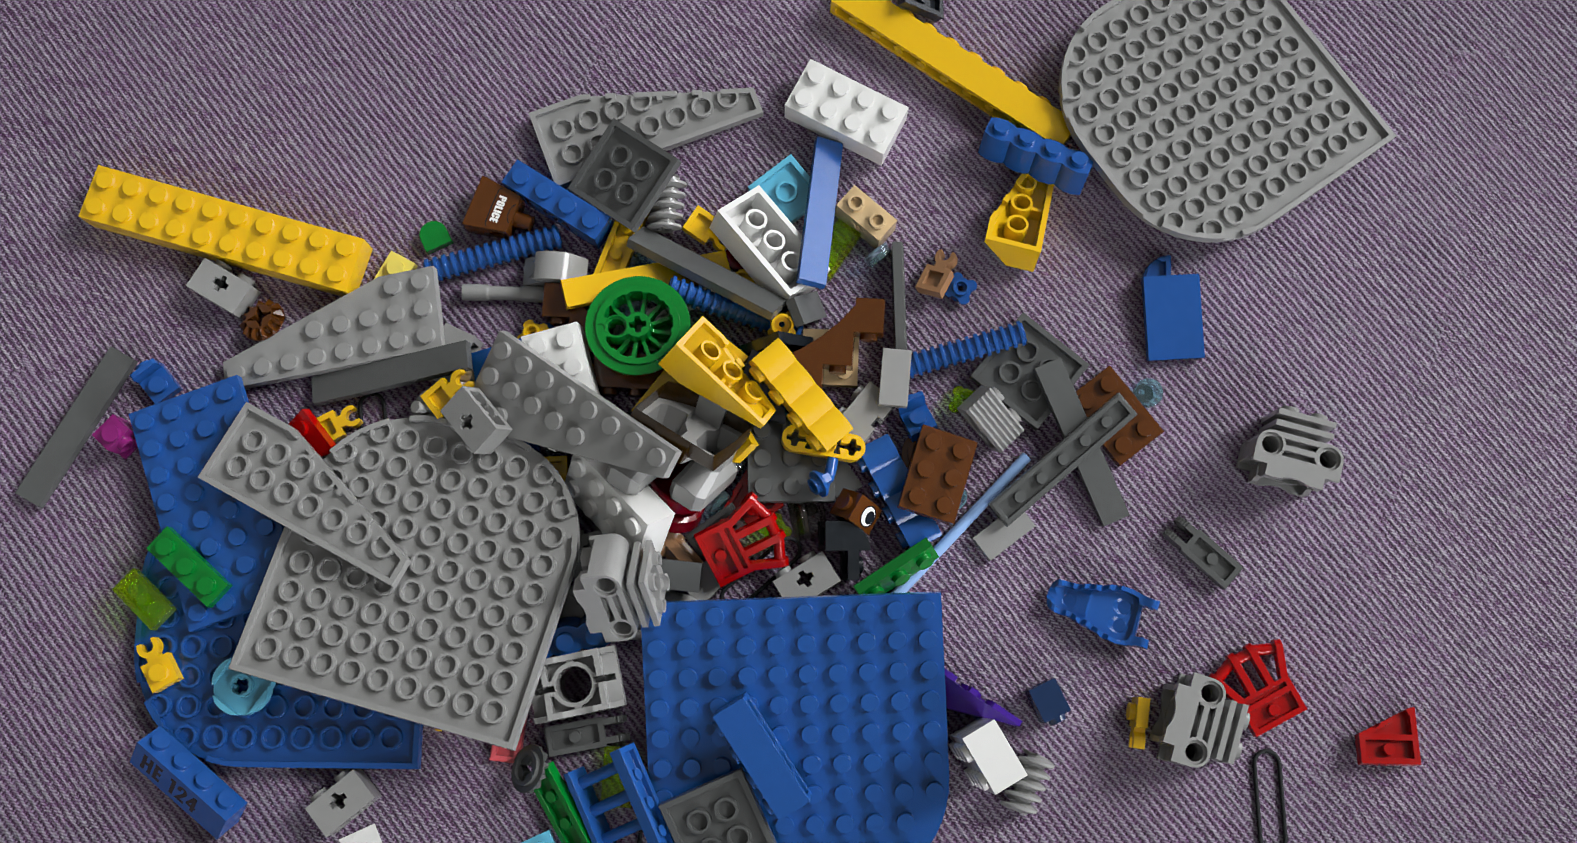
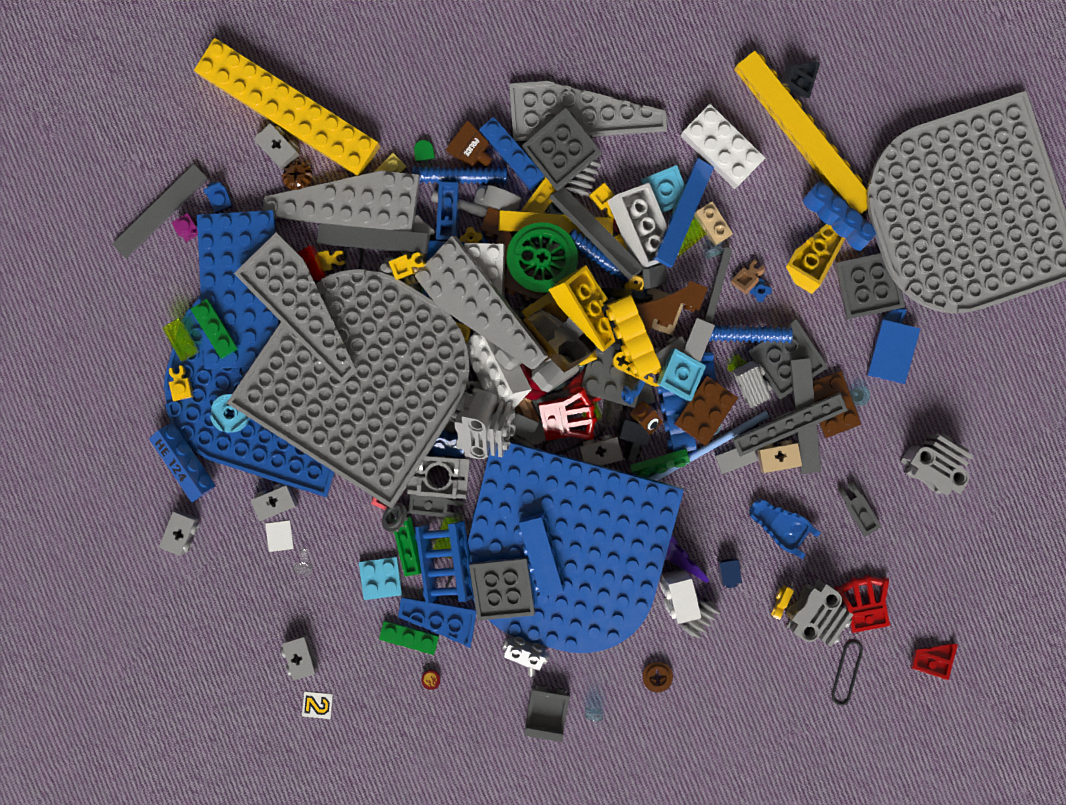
camera: 15 degrees right, 10 degrees up
(475, 420) = (421, 290): light grey brick -> none
(488, 303) = (448, 211): none -> blue slope
(885, 432) = (681, 374): none -> medium azure plate
(1080, 507) = (790, 458): none -> tan brick
(1107, 240) = (867, 287): none -> dark grey plate

